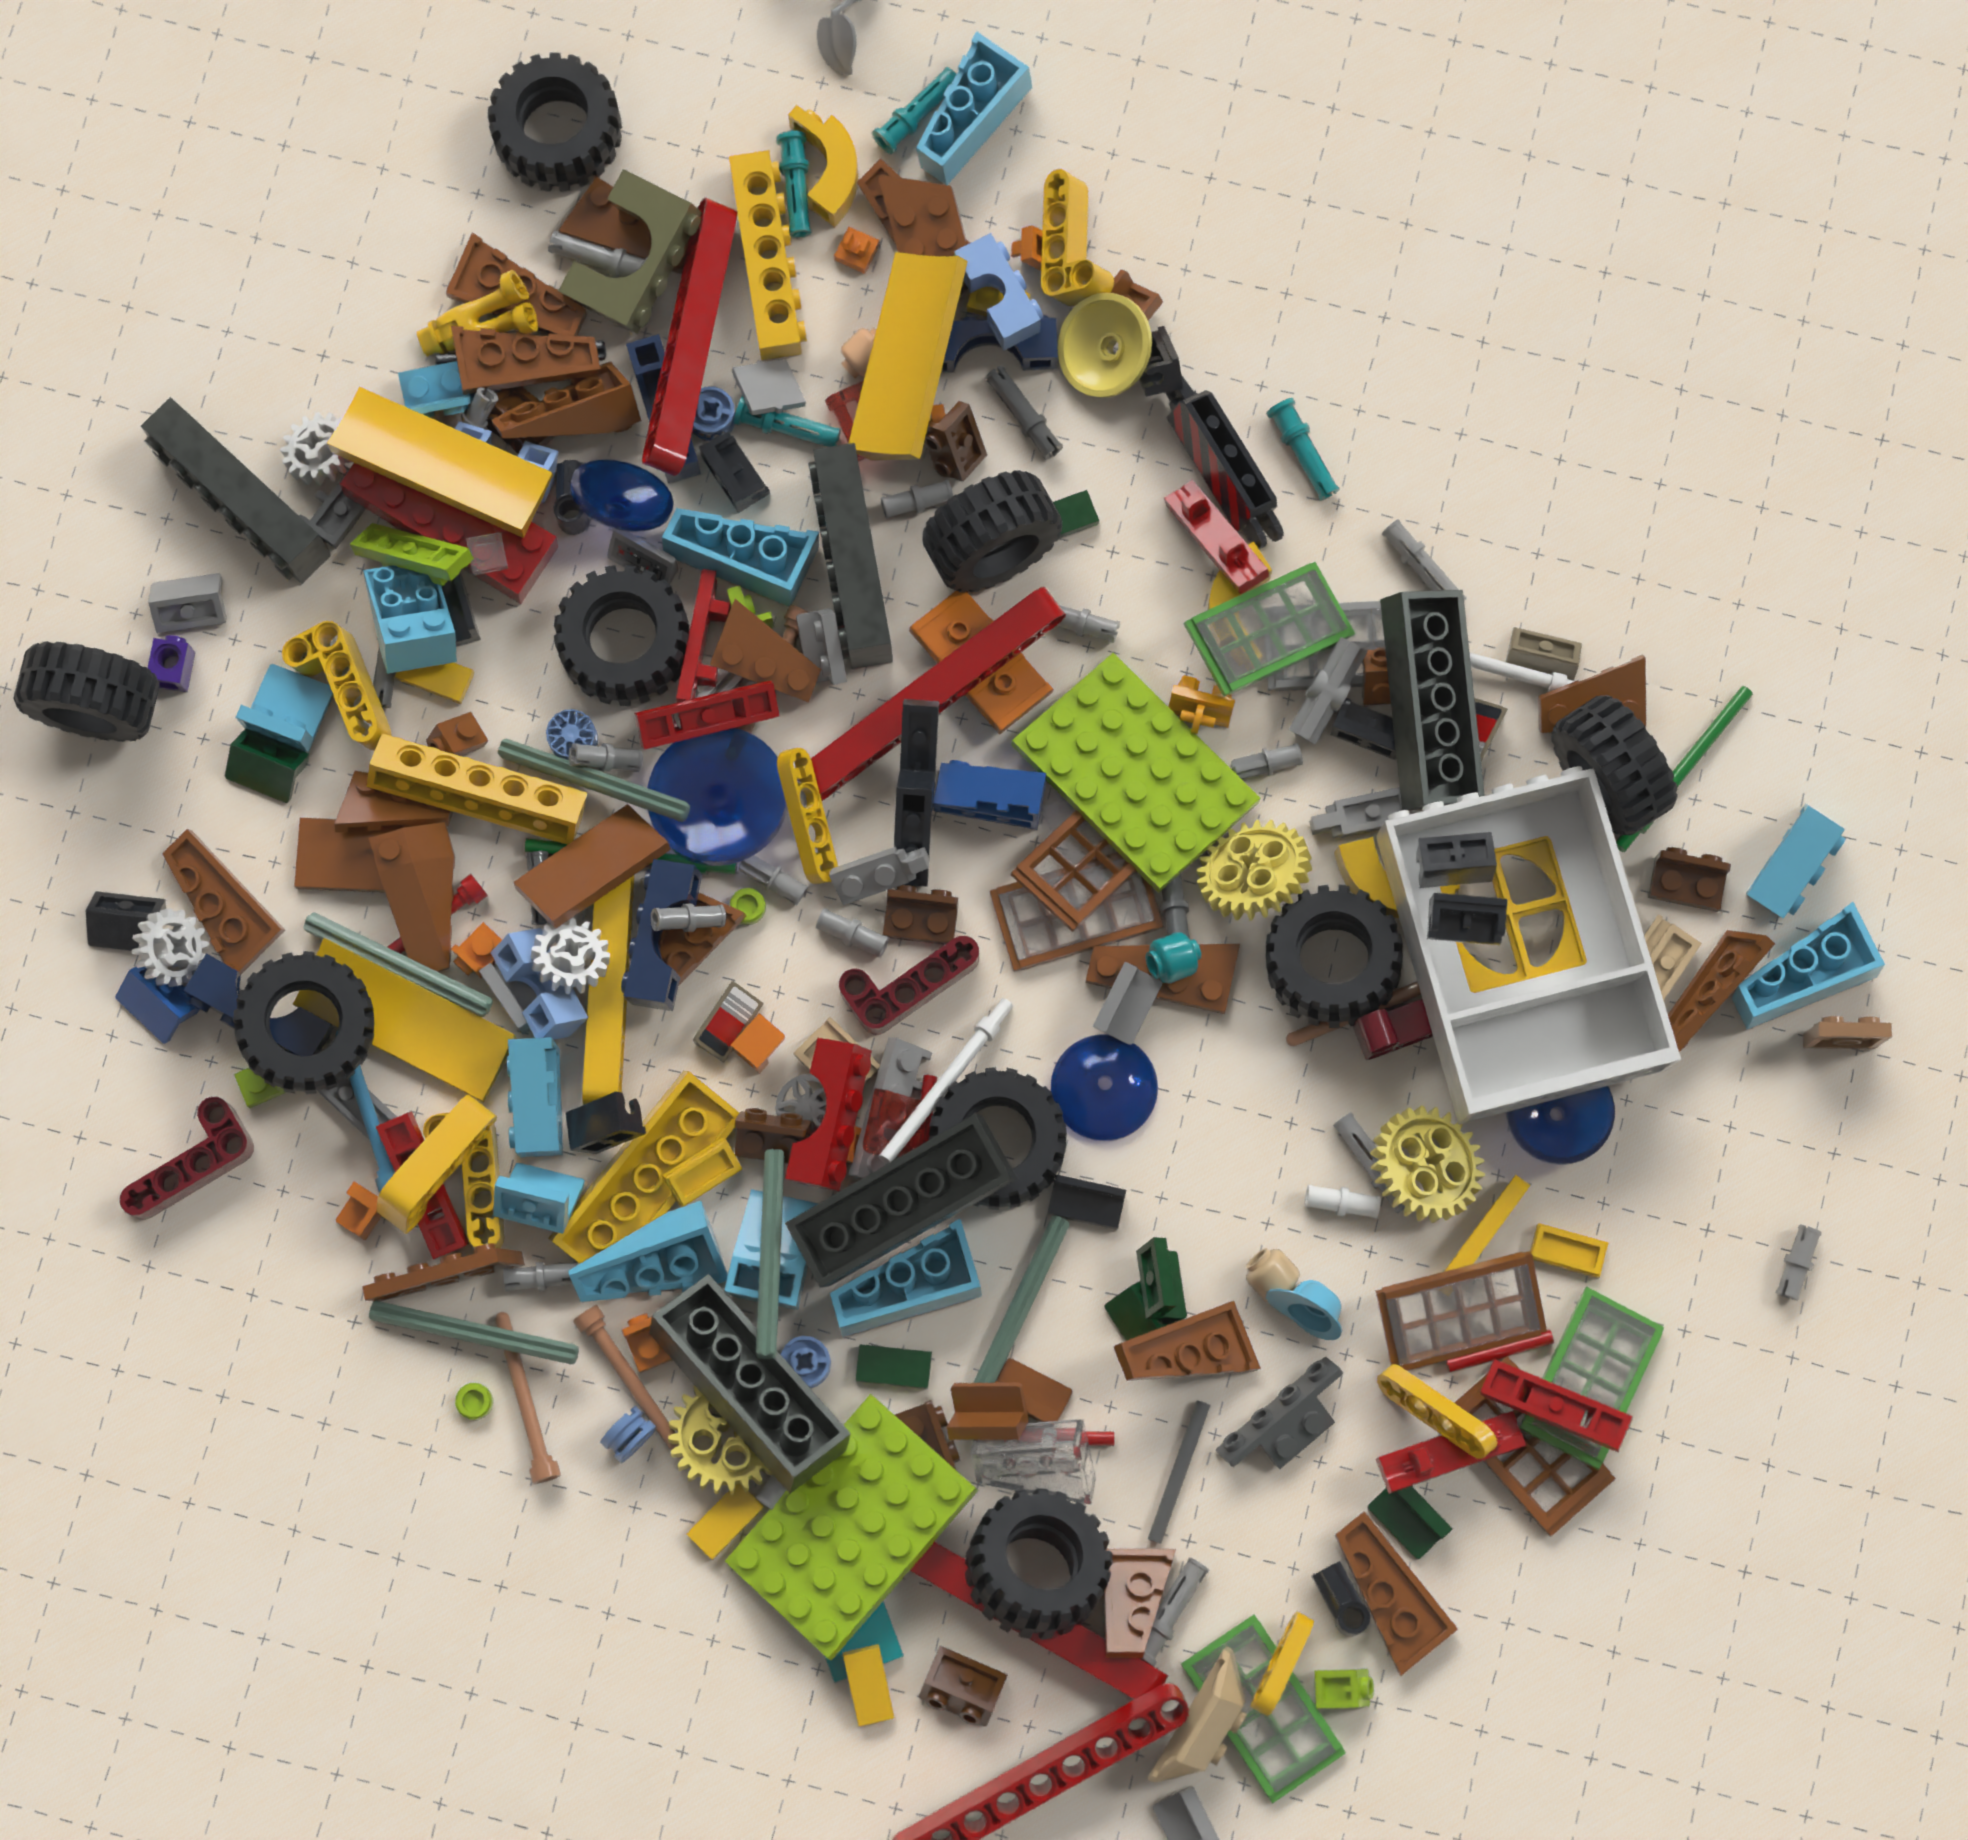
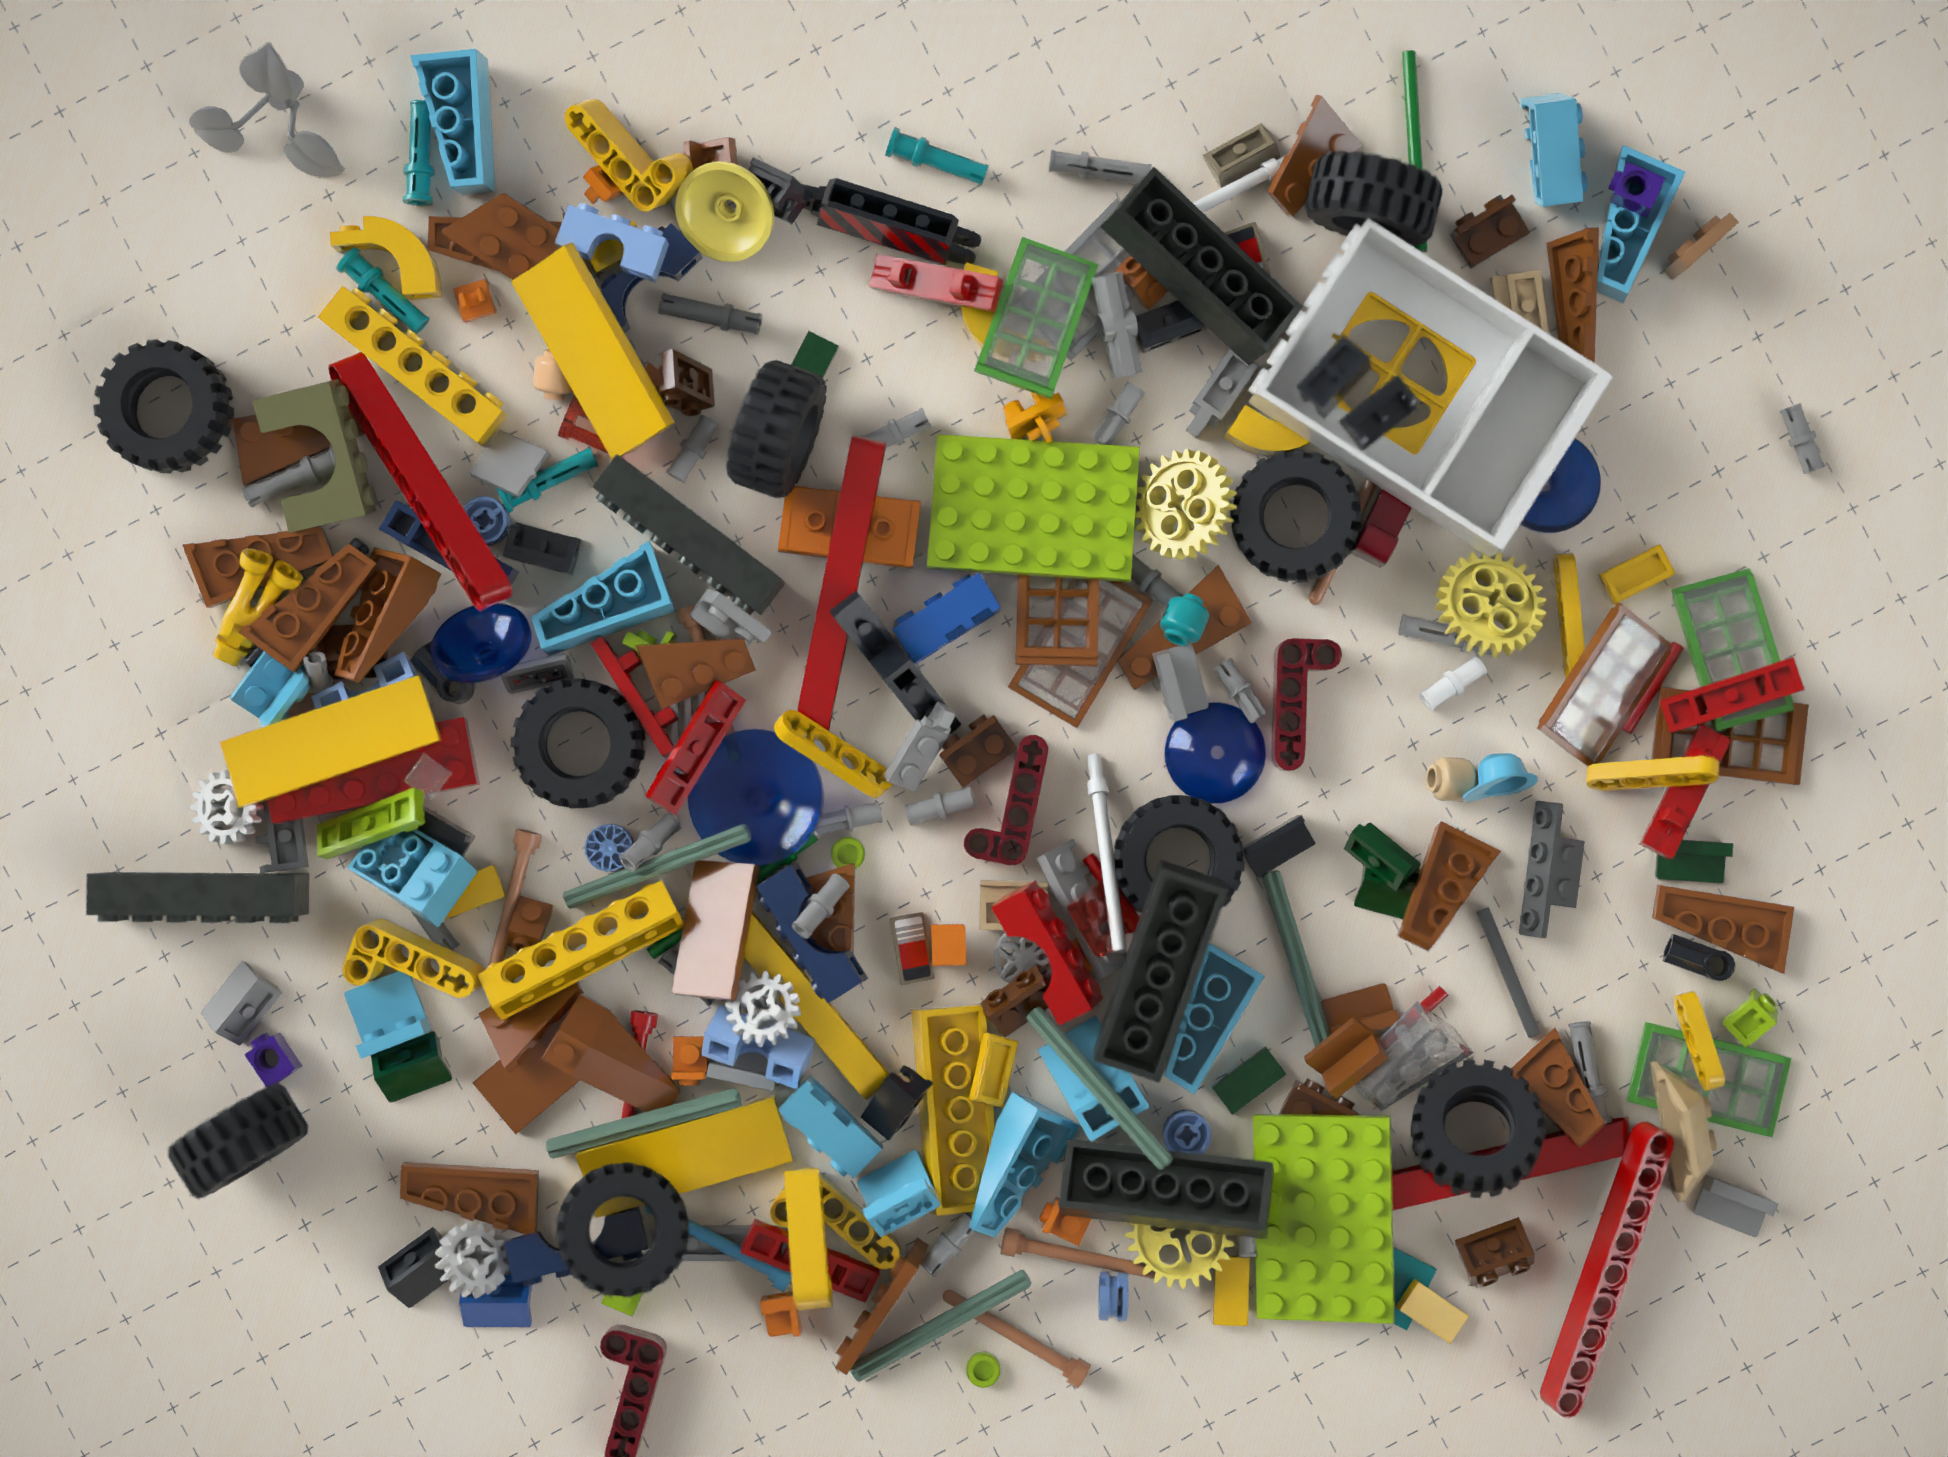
camera: 45 degrees left, 10 degrees up
(511, 677) = (525, 845): none -> nougat piece
(1168, 1055) = (1240, 691): none -> light grey axle
(1201, 1104) = (1298, 704): none -> dark red beam
(1826, 954) = (1649, 181): none -> dark purple brick

